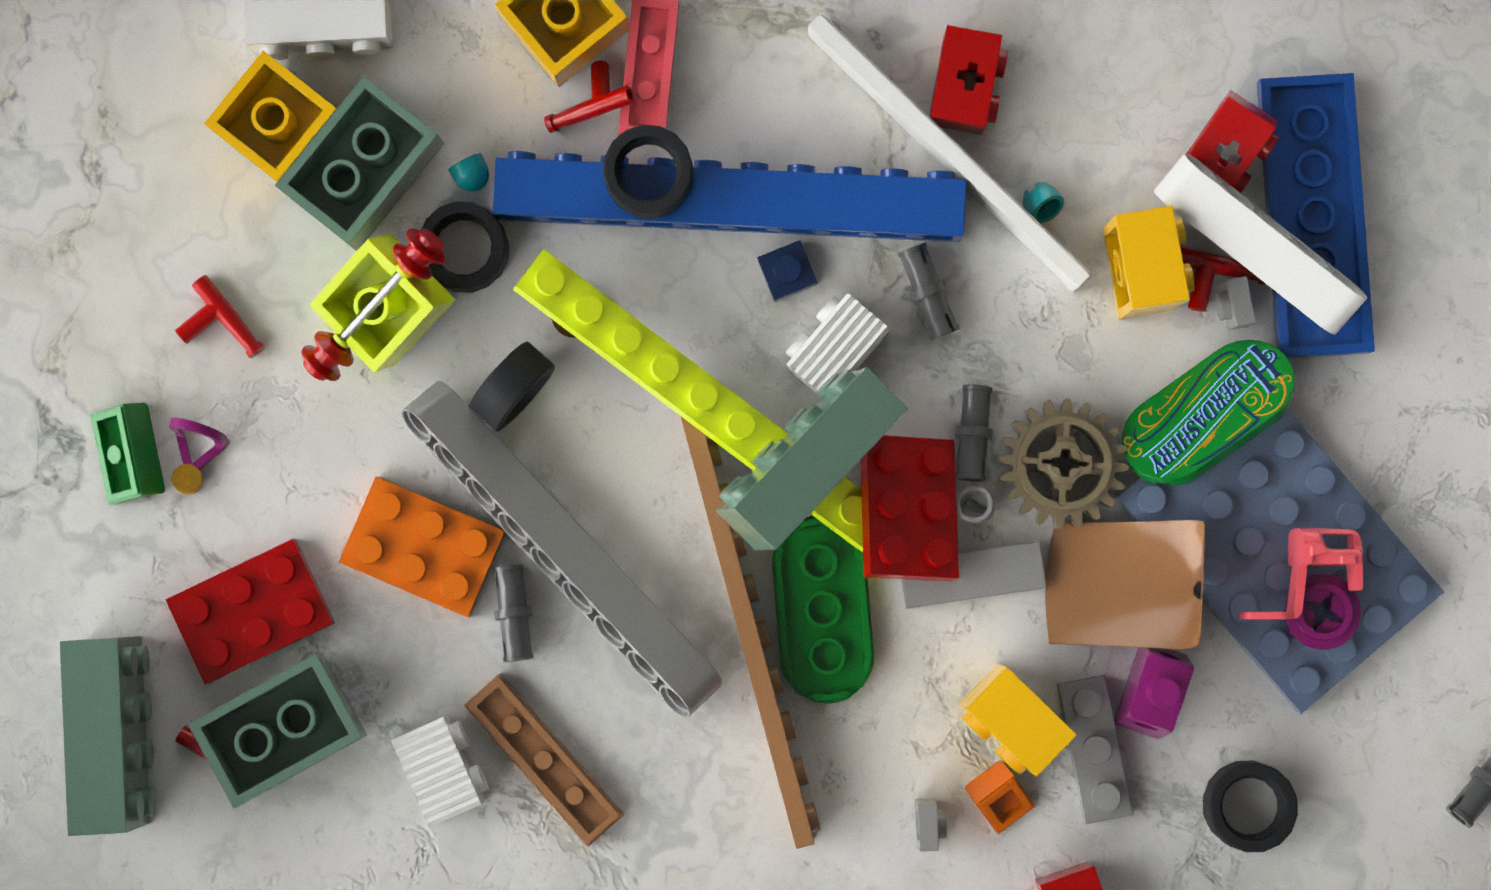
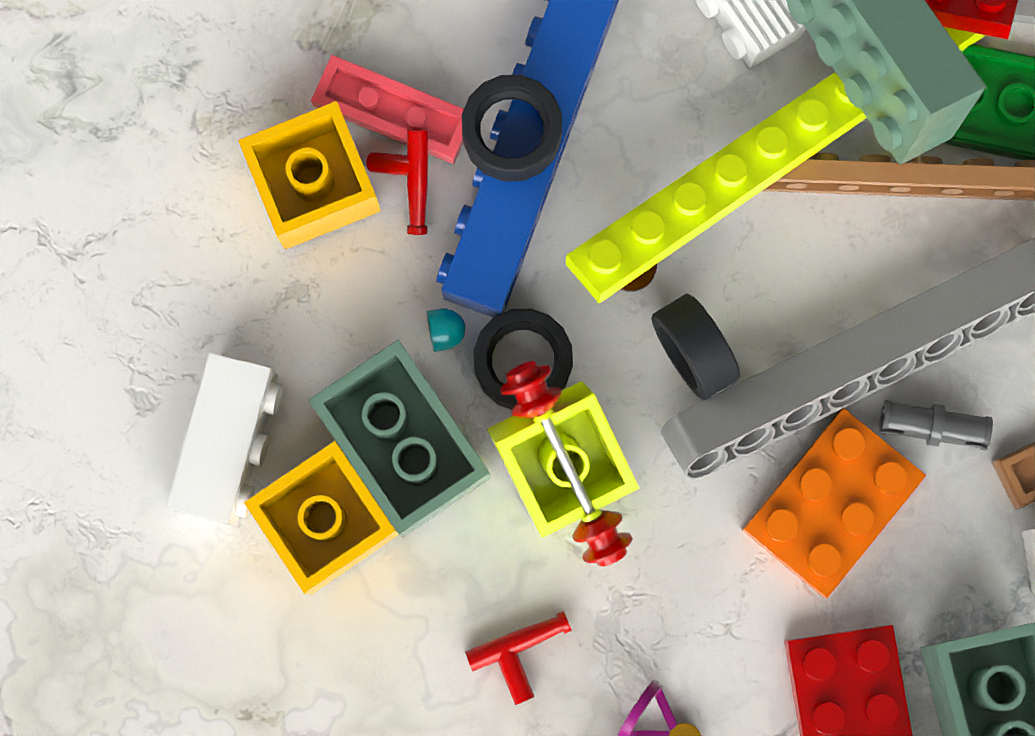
camera: 80 degrees left, 5 degrees down
(787, 271) = (650, 35): dark blue plate -> none

